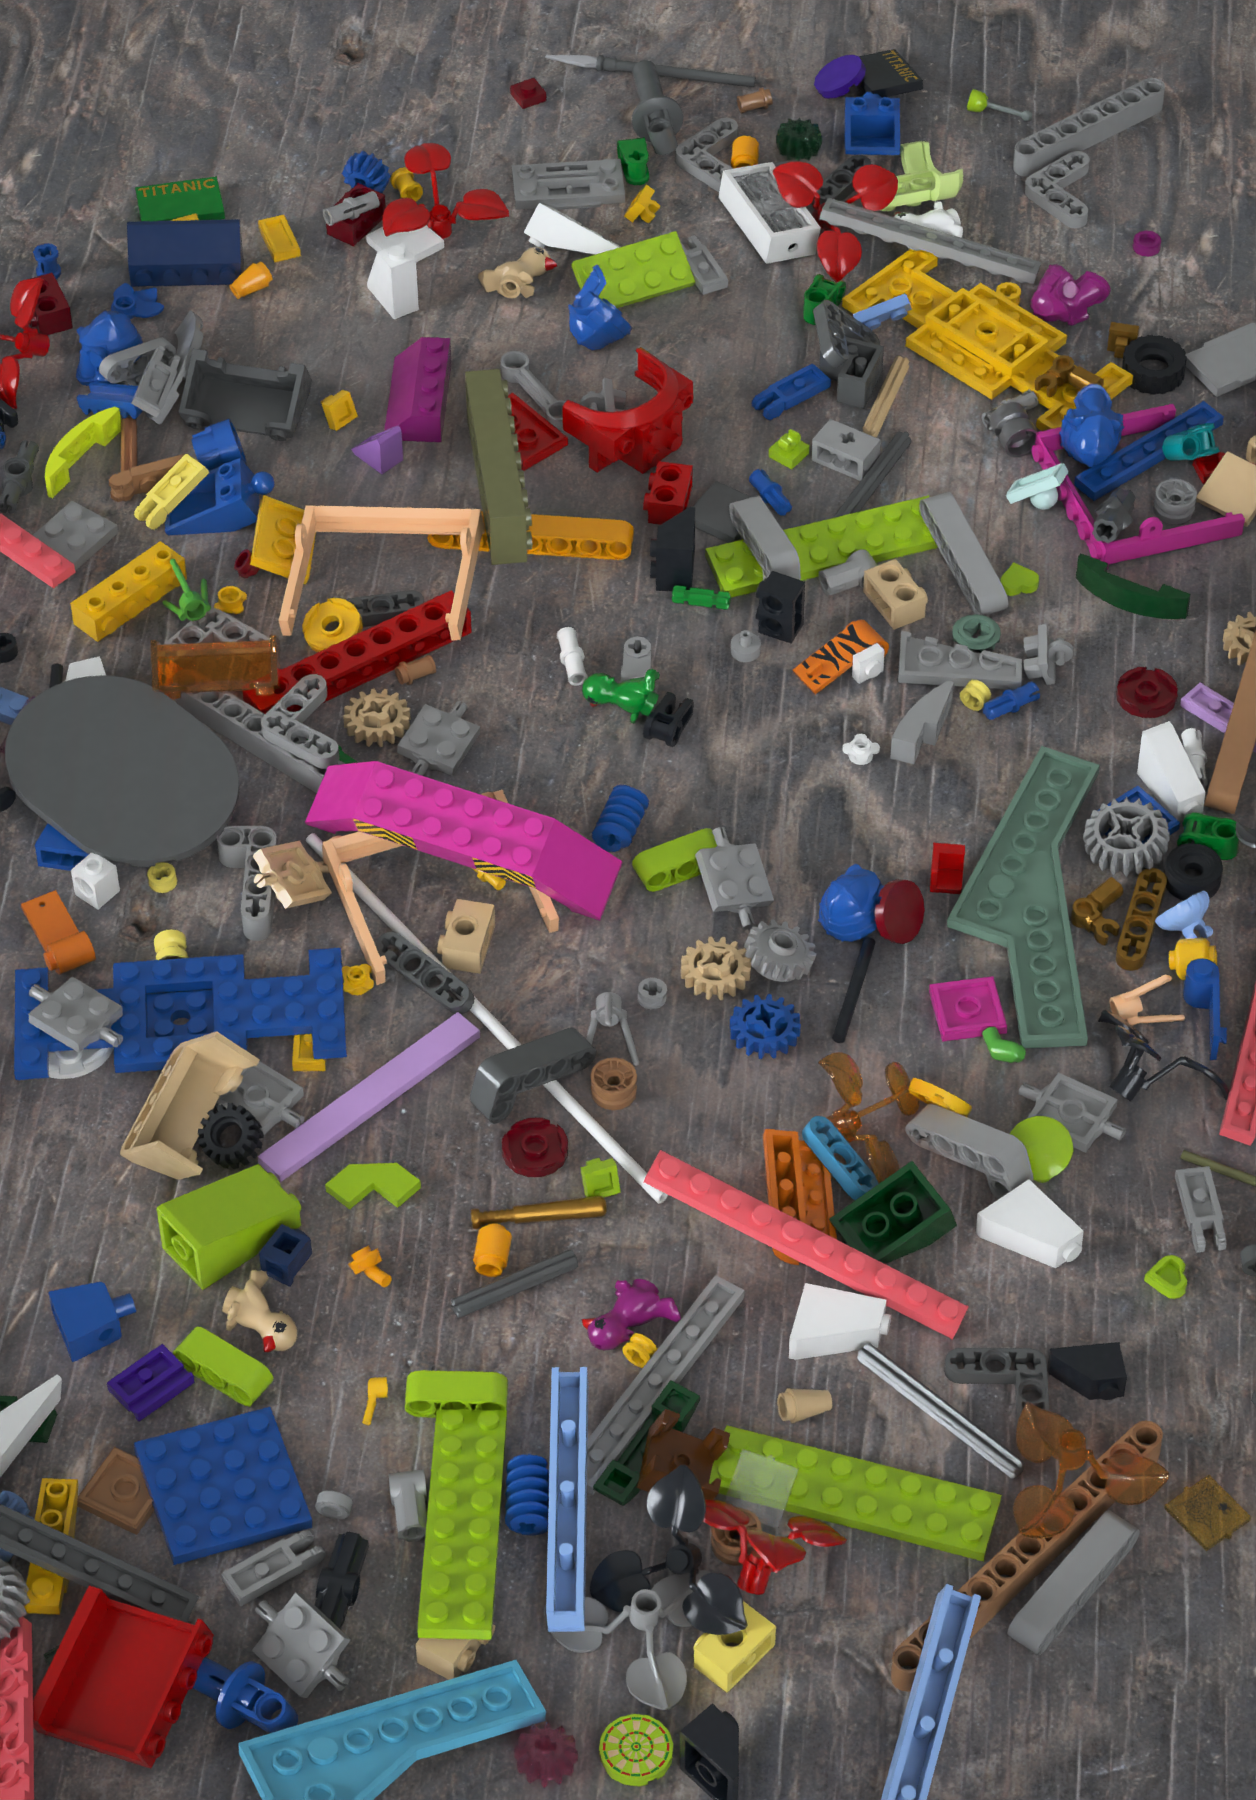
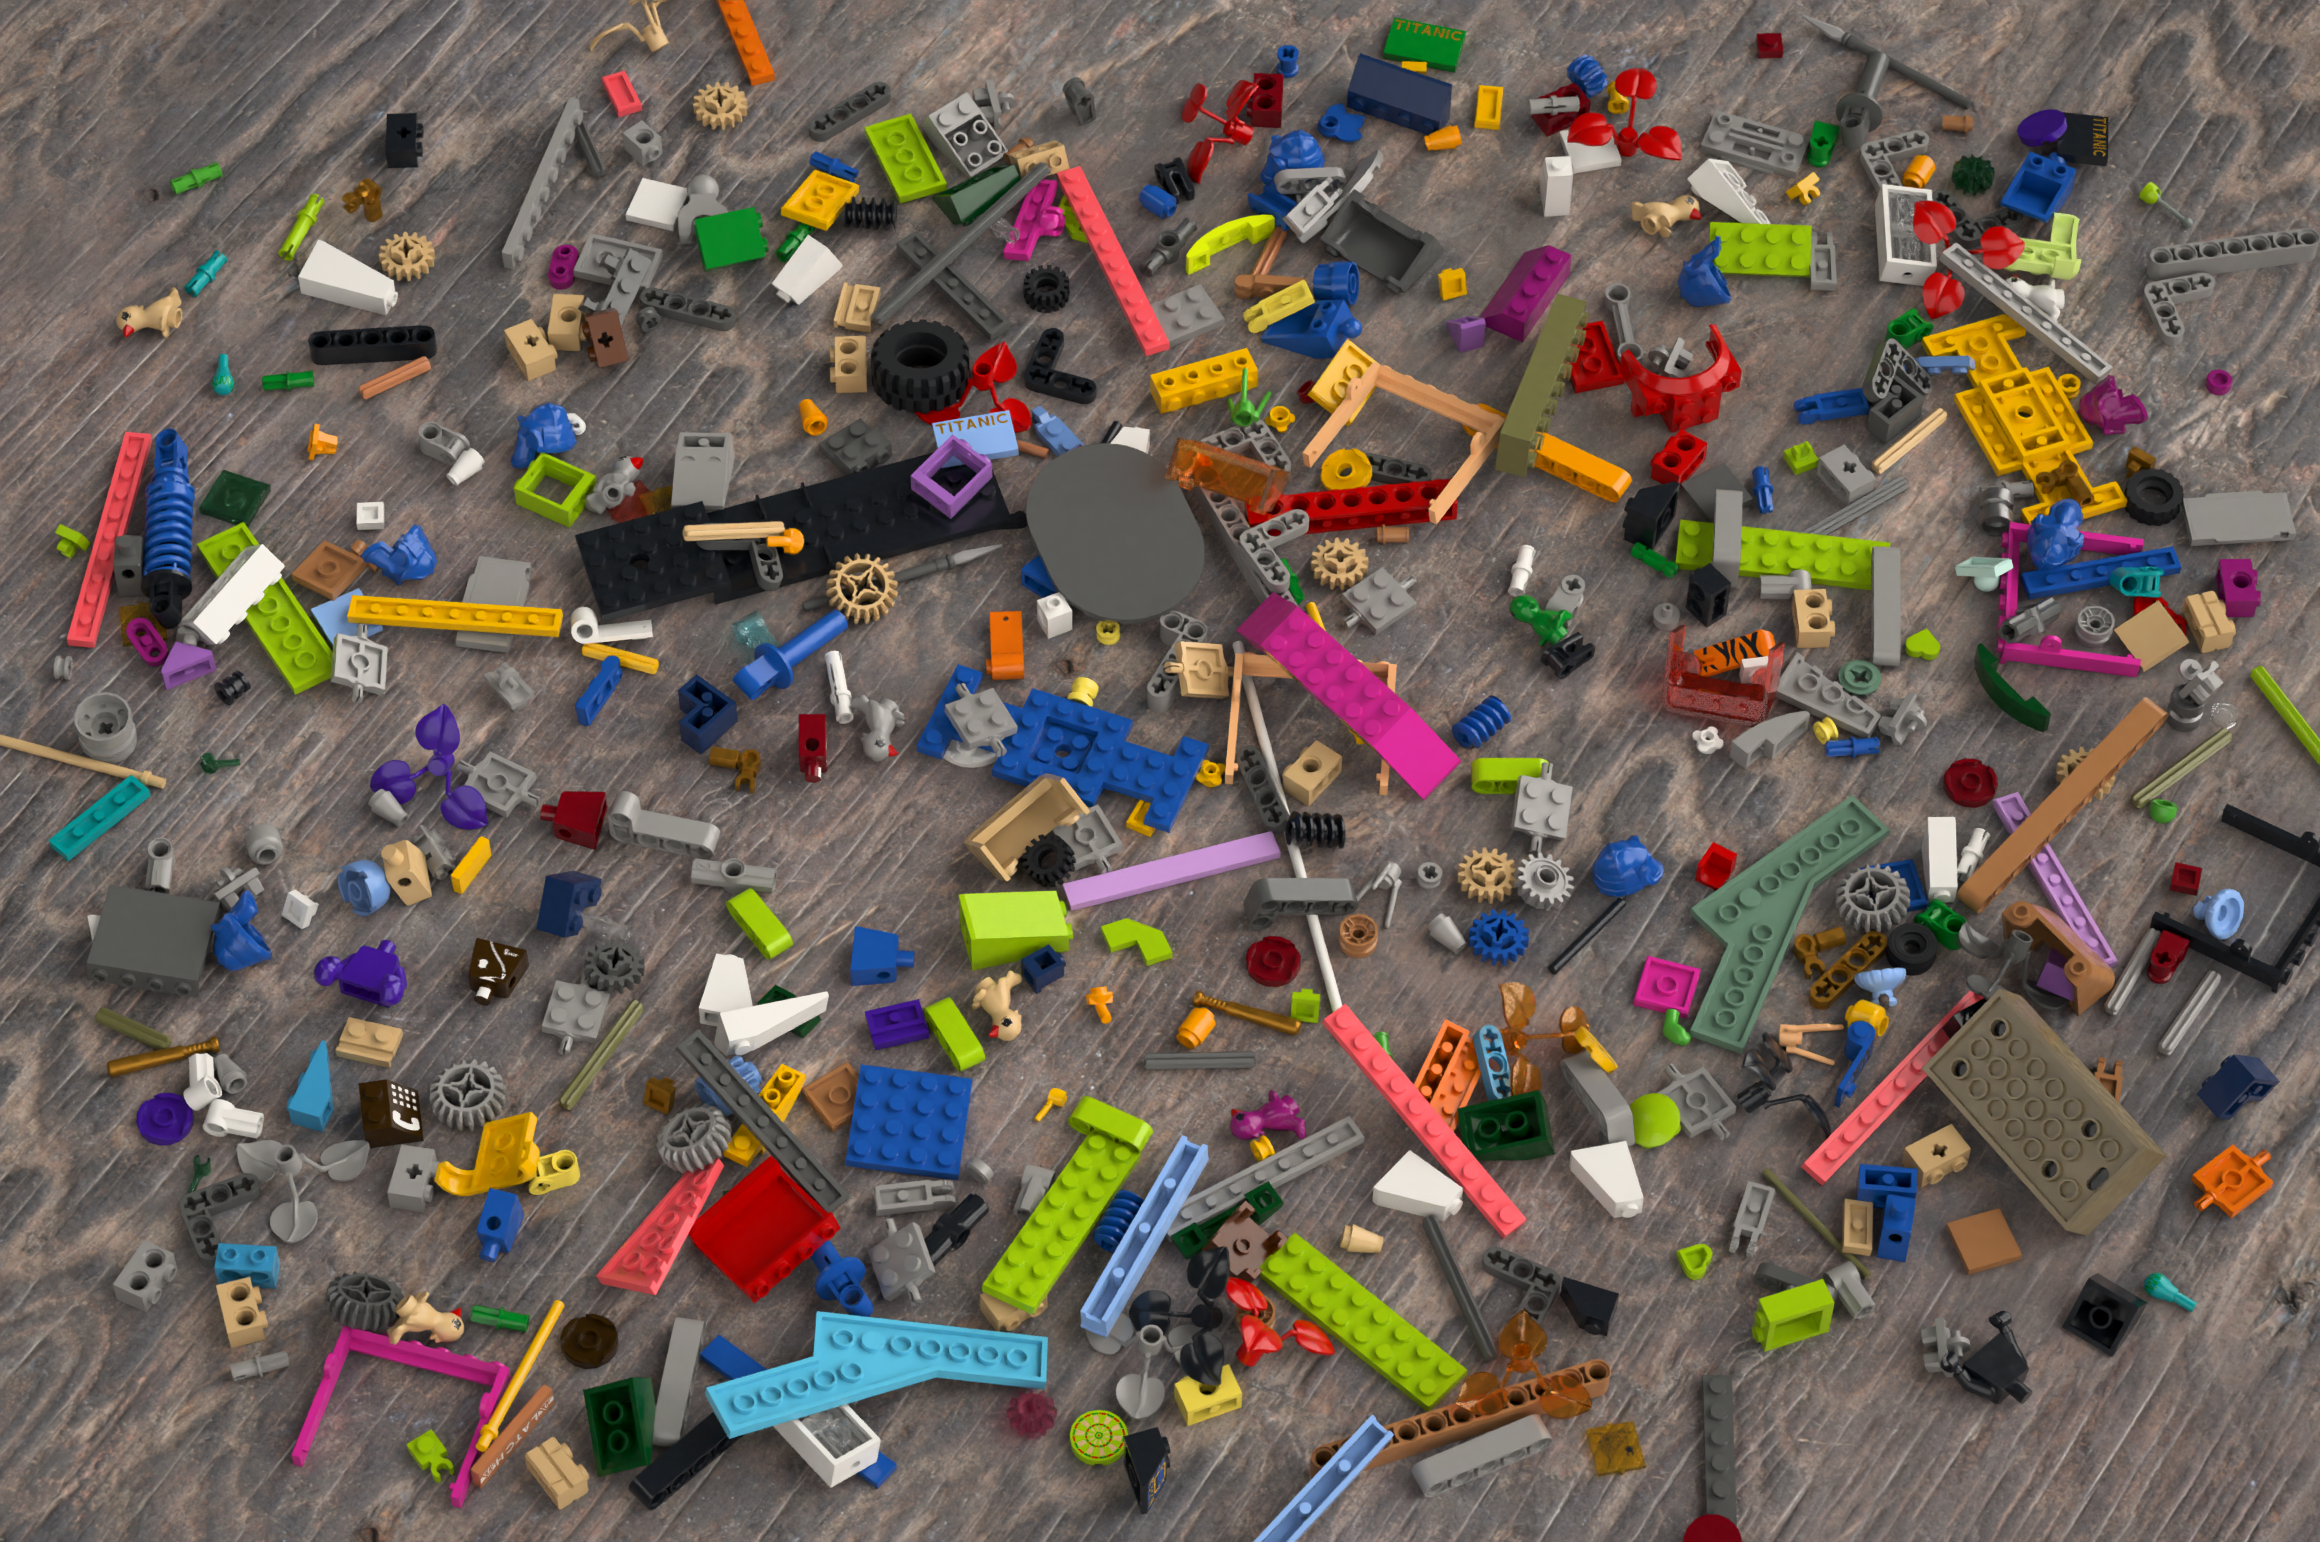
camera: 25 degrees right, 5 degrees up
(508, 990) = (1315, 827): none -> black piece
(707, 1044) = (1446, 932): none -> light grey cone
(762, 1486) = (1291, 1288): clear piece -> none
(849, 704) = (1717, 699): none -> clear red windscreen
(900, 911) = (1653, 887): dark red tile -> none

